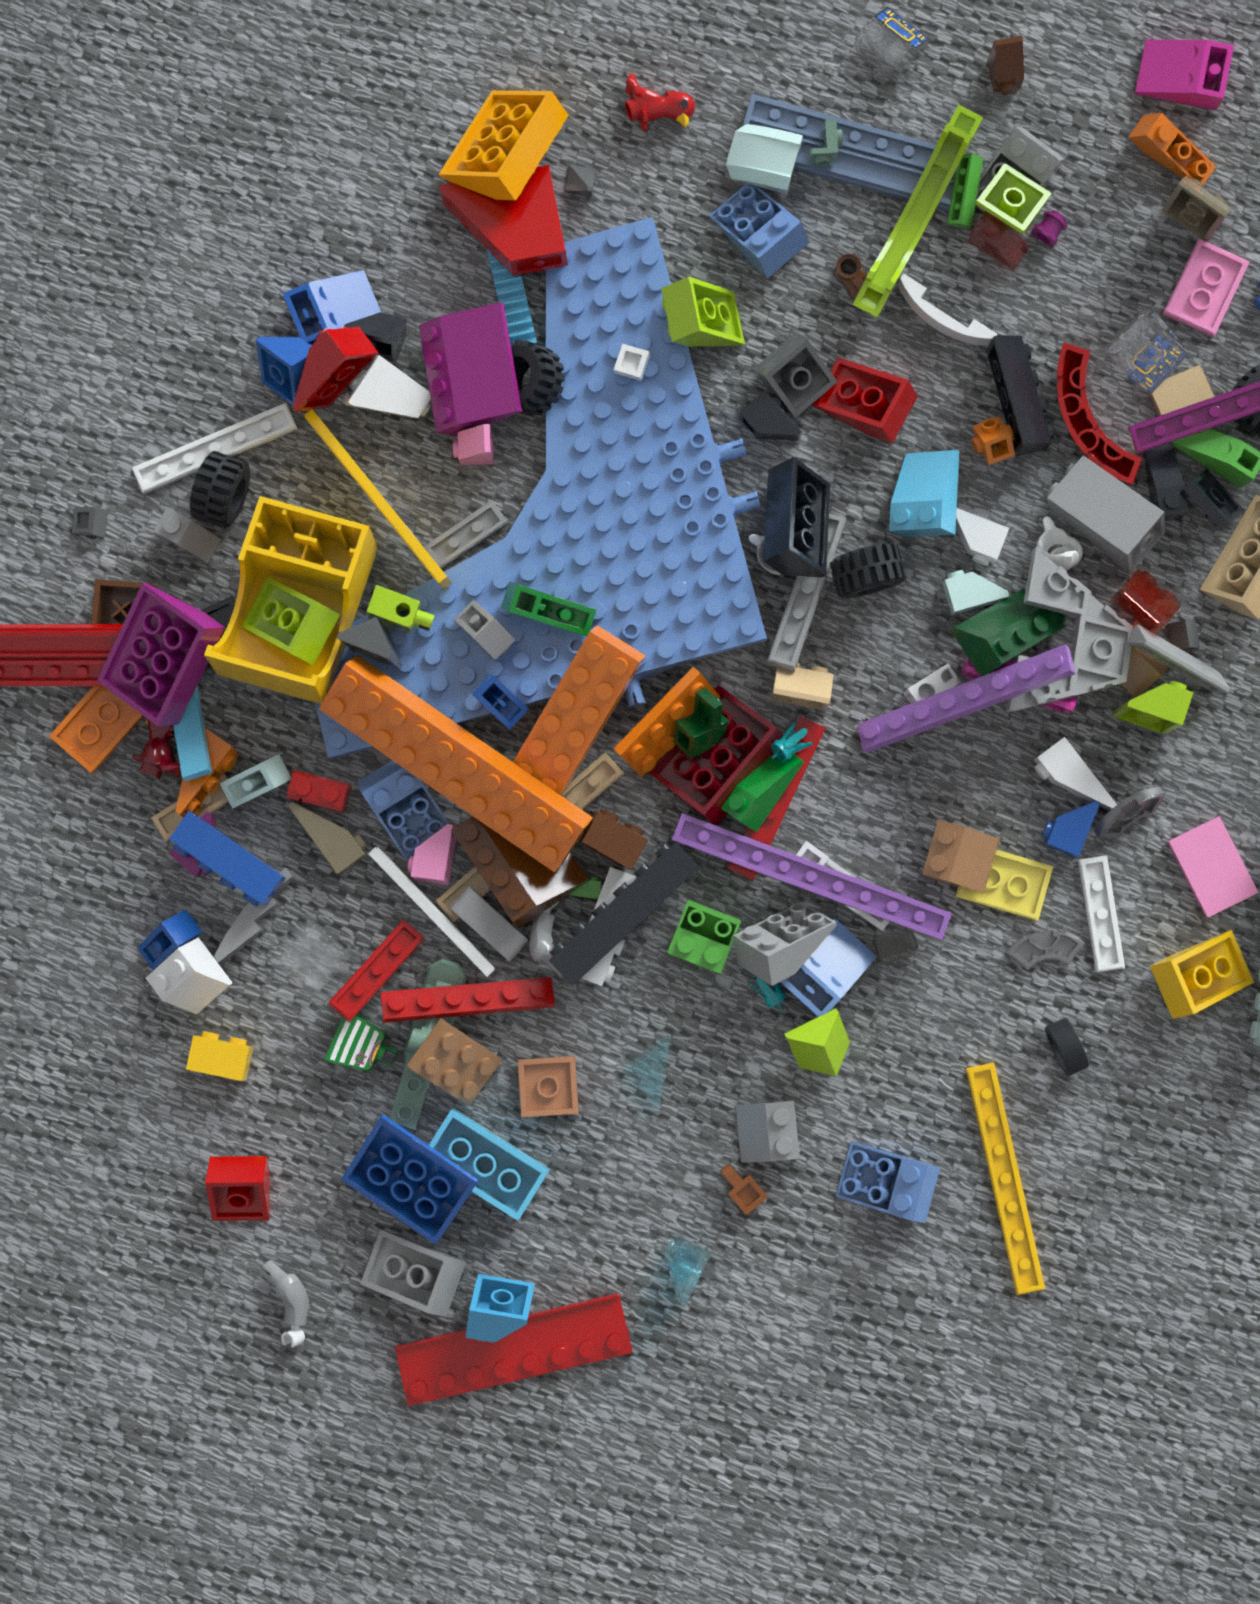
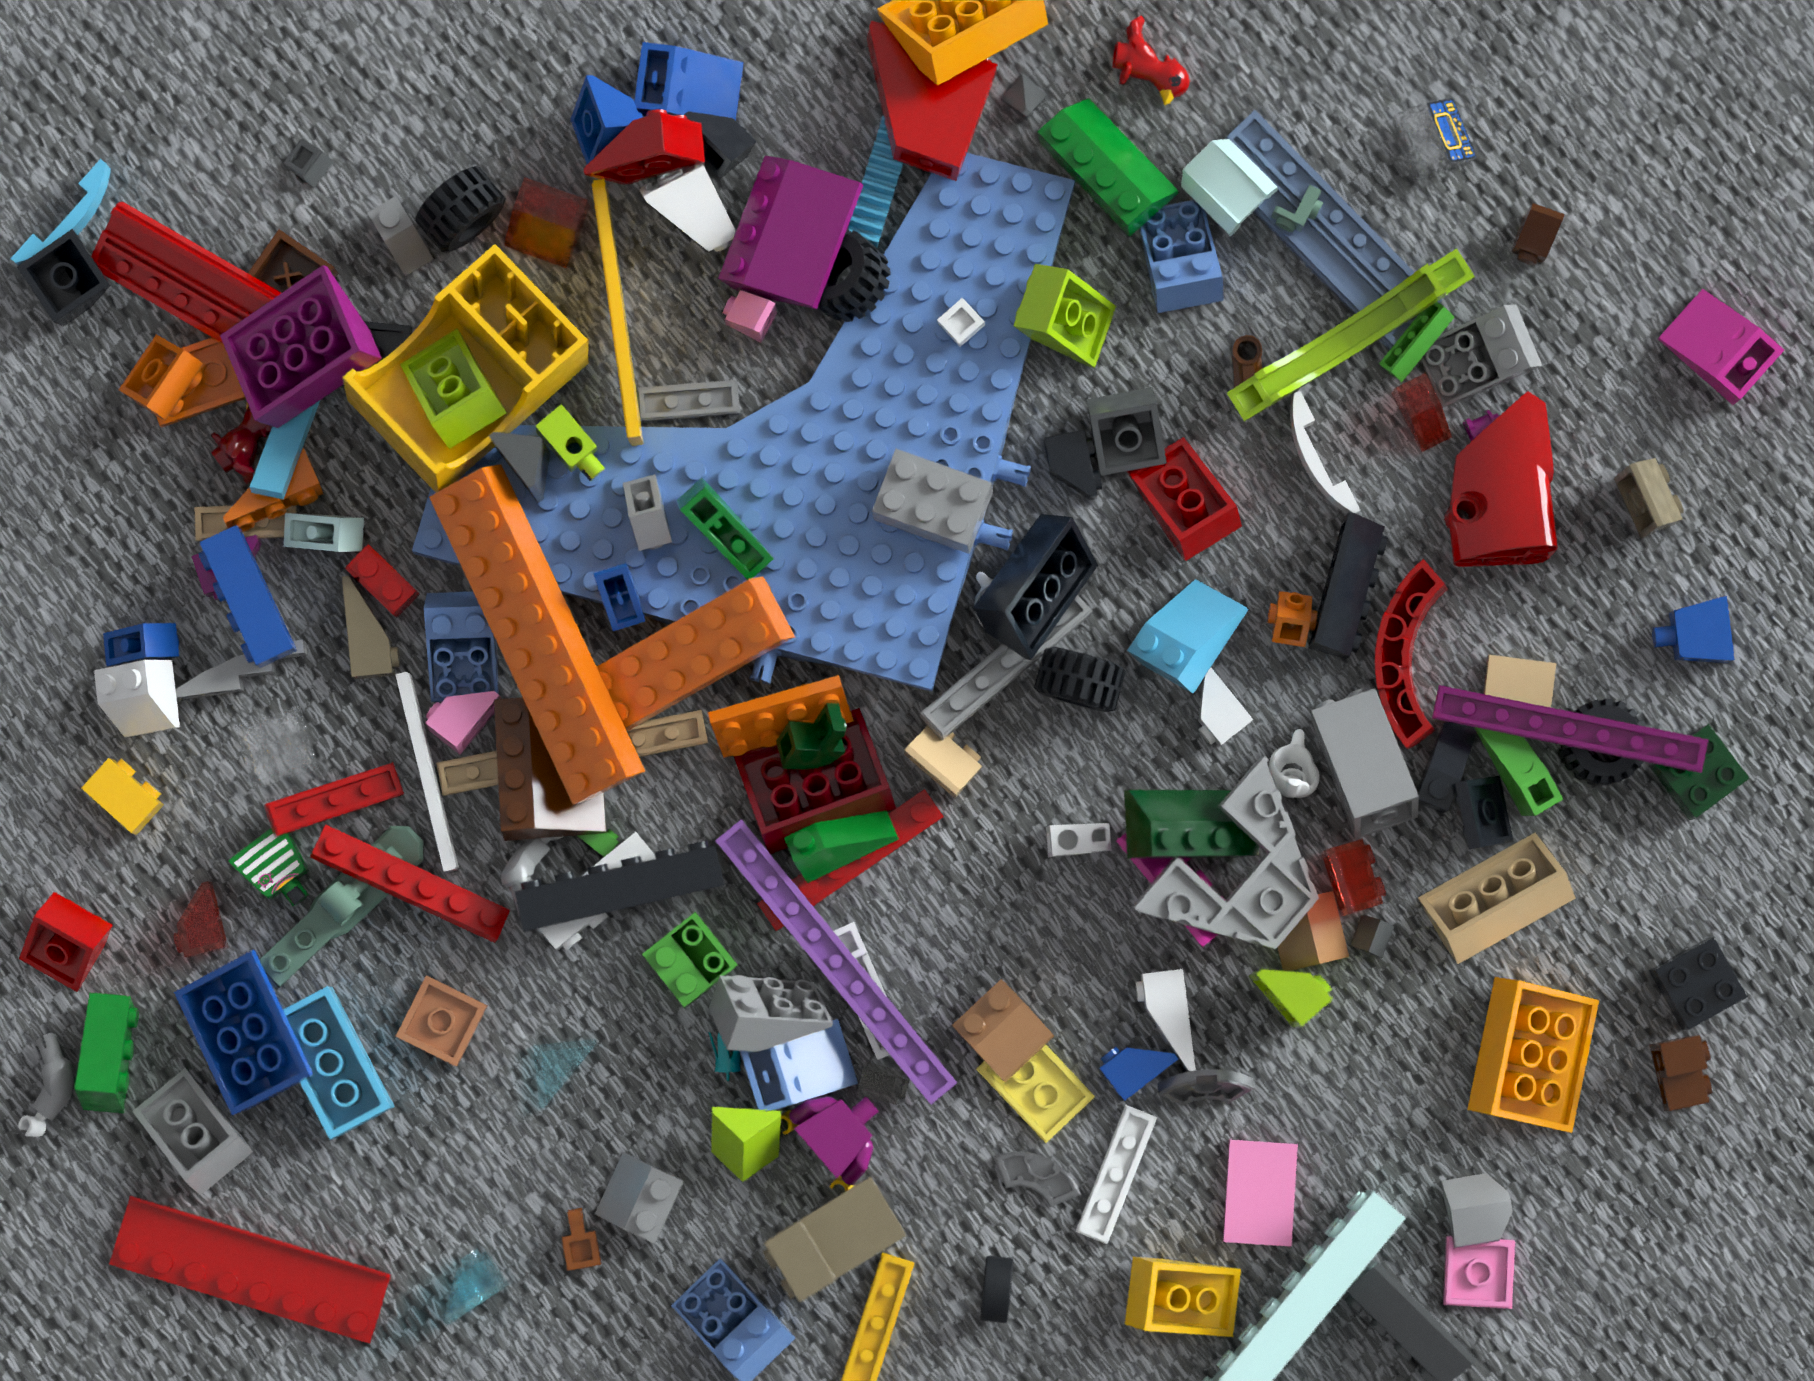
camera: 20 degrees right, 0 degrees up
(72, 735) = (162, 378): none -> orange brick
(229, 441) = (496, 161): white tile -> none
(288, 465) = (546, 222): none -> clear red slope
(316, 1252) = (106, 1052): none -> green wedge
(331, 1118) = (201, 925): none -> clear red slope
(454, 1062) = (359, 940): medium nougat plate -> none
(489, 923) = (478, 818): light grey beam -> none
(498, 1307) = (258, 1216): dark azure slope -> none
(613, 840) = (654, 806): reddish brown brick -> none
(668, 194) = (1106, 165): none -> green slope
(688, 500) = (932, 501): none -> light grey brick
(787, 745) = (890, 811): teal piece -> none
(885, 1003) = (835, 1135): none -> magenta torso
(930, 1079) = (833, 1239): none -> dark tan brick
(966, 698) = (1099, 870): medium lavender plate -> none
(970, 592) = (1176, 762): light aqua slope -> none
(1013, 199) = (1458, 379): lime slope -> none
(1093, 261) = (1505, 490): none -> red panel
(1146, 351) = (1507, 617): clear slope -> none
(1170, 147) = (1660, 420): orange slope -> none
(1177, 660) = (1347, 957): light grey slope -> none
(1206, 287) = (1611, 586): bright pink tile -> none

